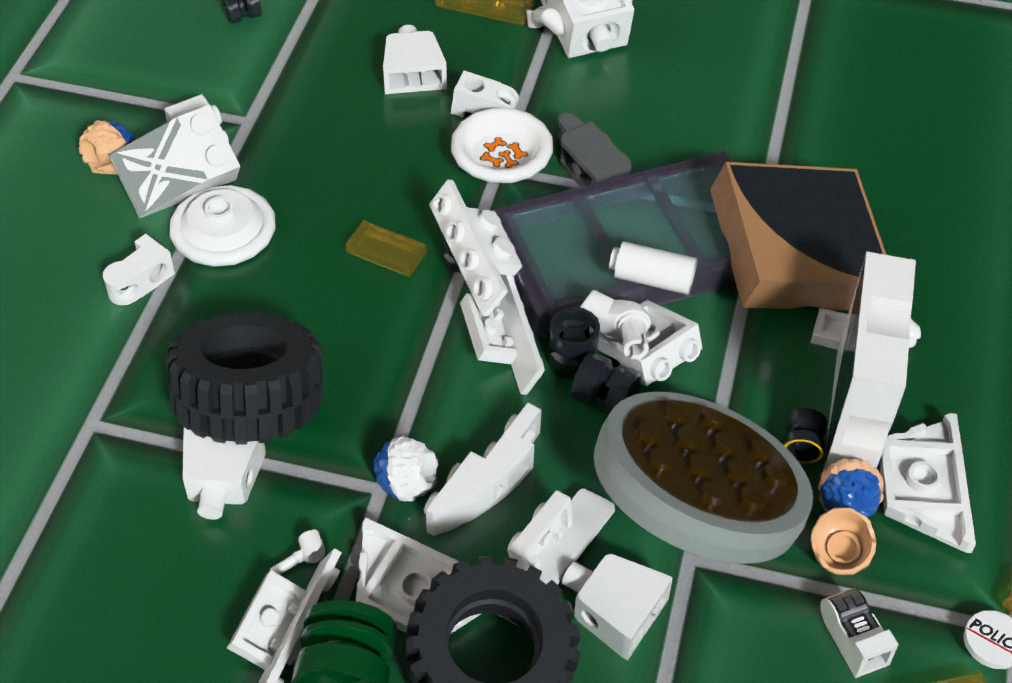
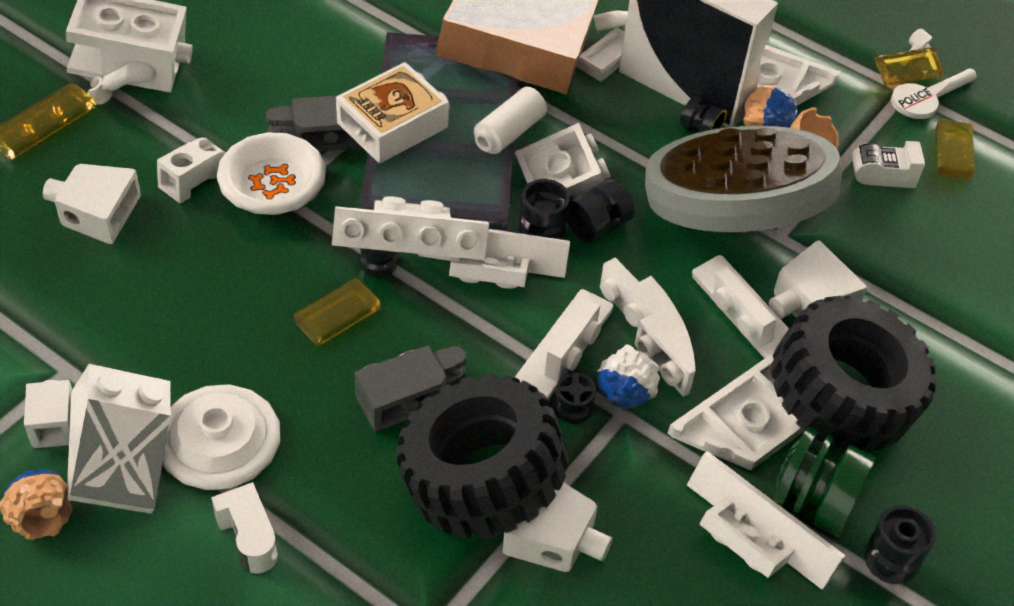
camera: 70 degrees left, 0 degrees up
(311, 551) = (674, 482): white hand -> none
(326, 314) = (399, 385): none -> dark grey hinge
(371, 429) = (582, 391): none -> black wheel
(424, 412) = (565, 342): none -> white bracket
(607, 184) = (392, 112): none -> brick
(621, 320) = (551, 164): white arm -> none

